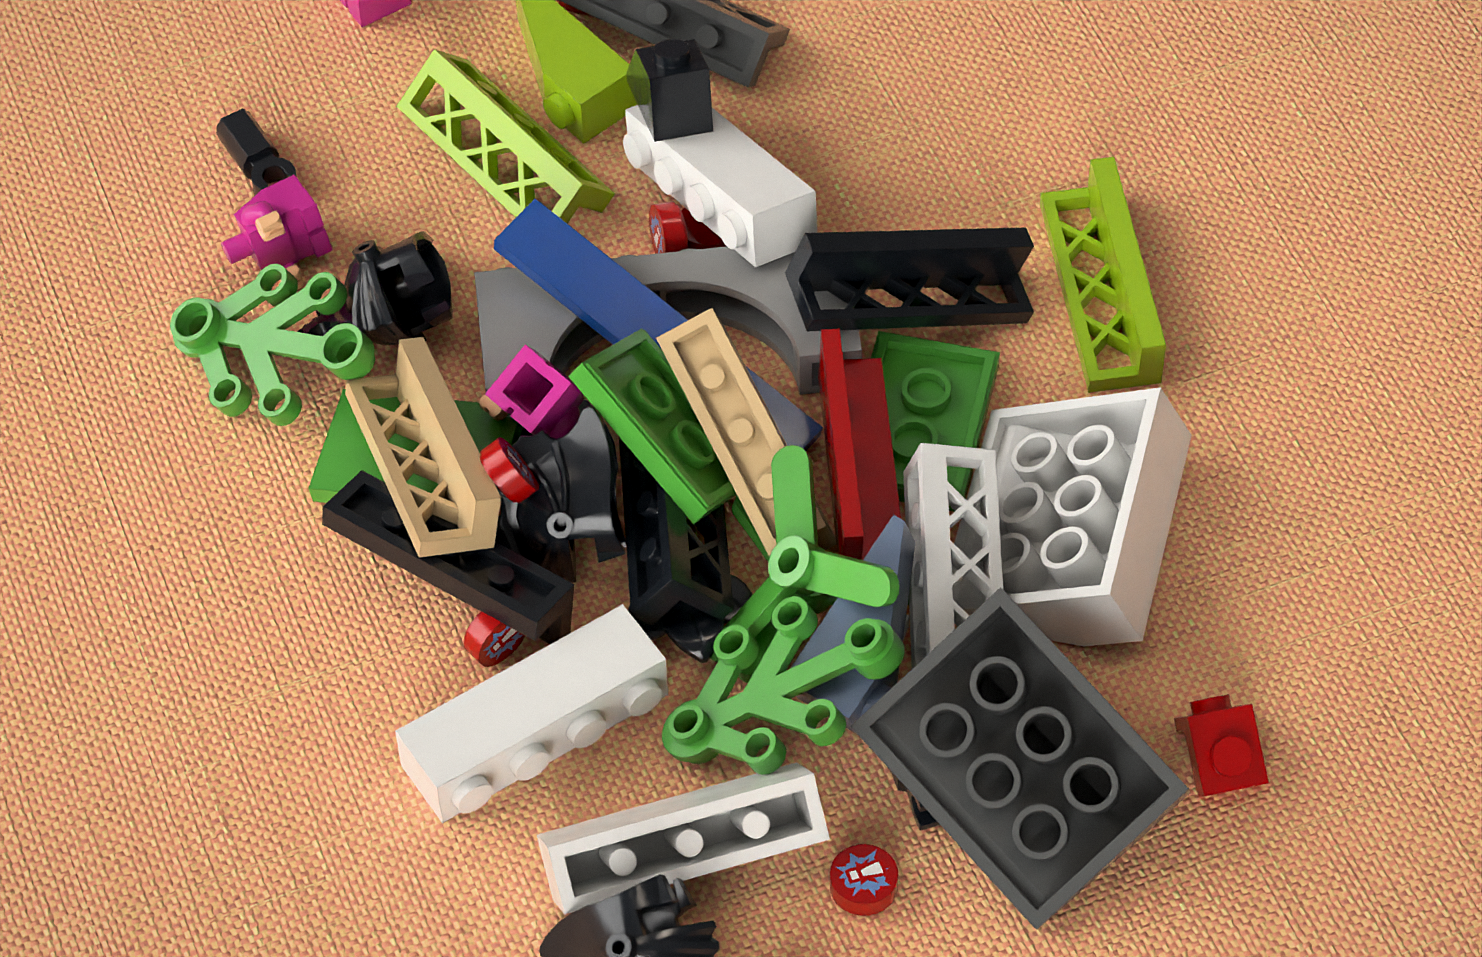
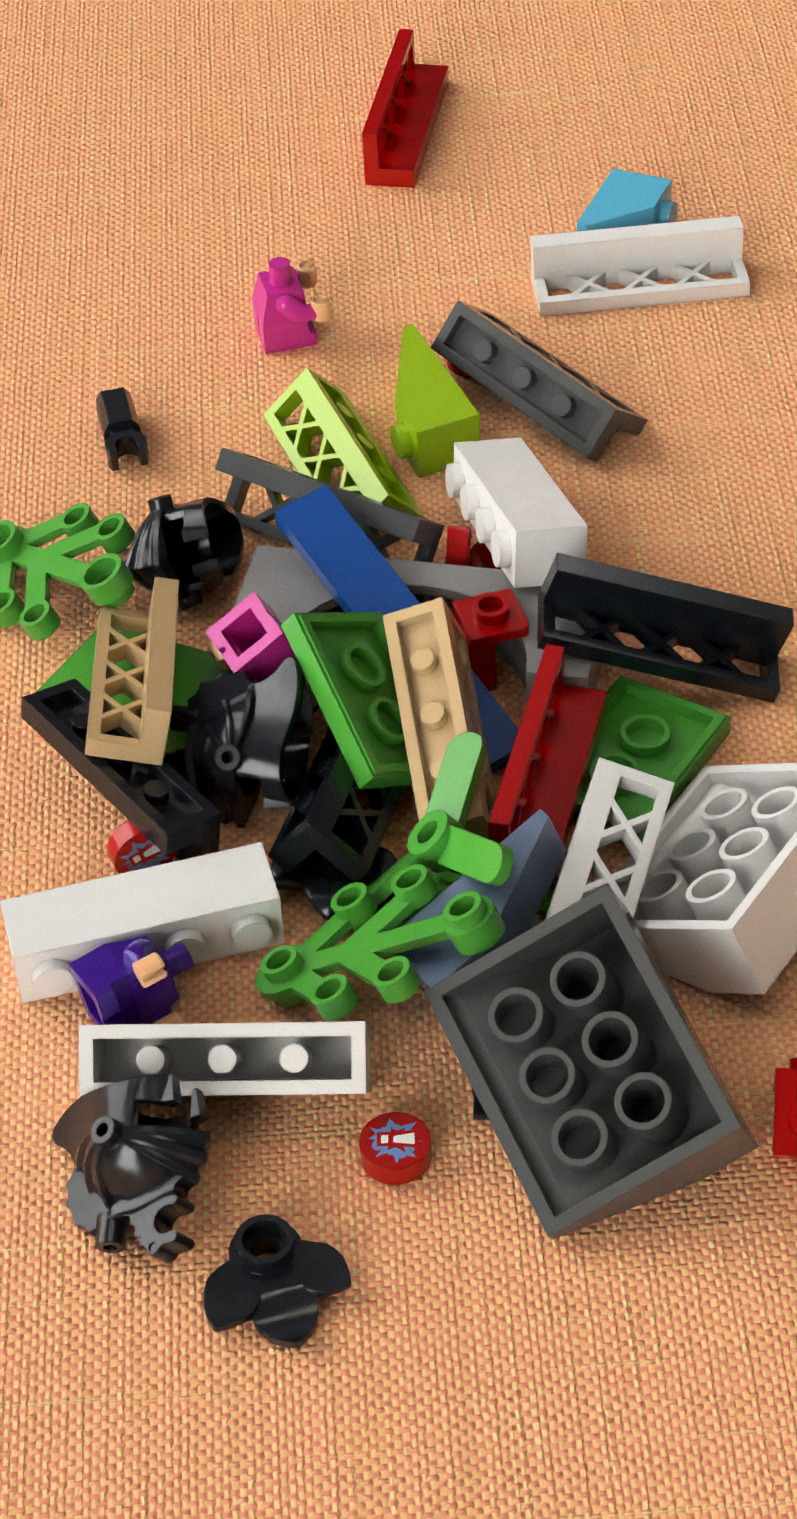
camera: 20 degrees right, 10 degrees down
(279, 228) = (107, 481): dark pink piece -> none
(508, 470) = (194, 695): red tile -> none
(510, 199) = (281, 480): none -> dark grey fence
(554, 782) = (131, 982): none -> dark purple piece
(672, 88) = (495, 423): black slope -> none
(745, 308) = (489, 621): none -> red bracket

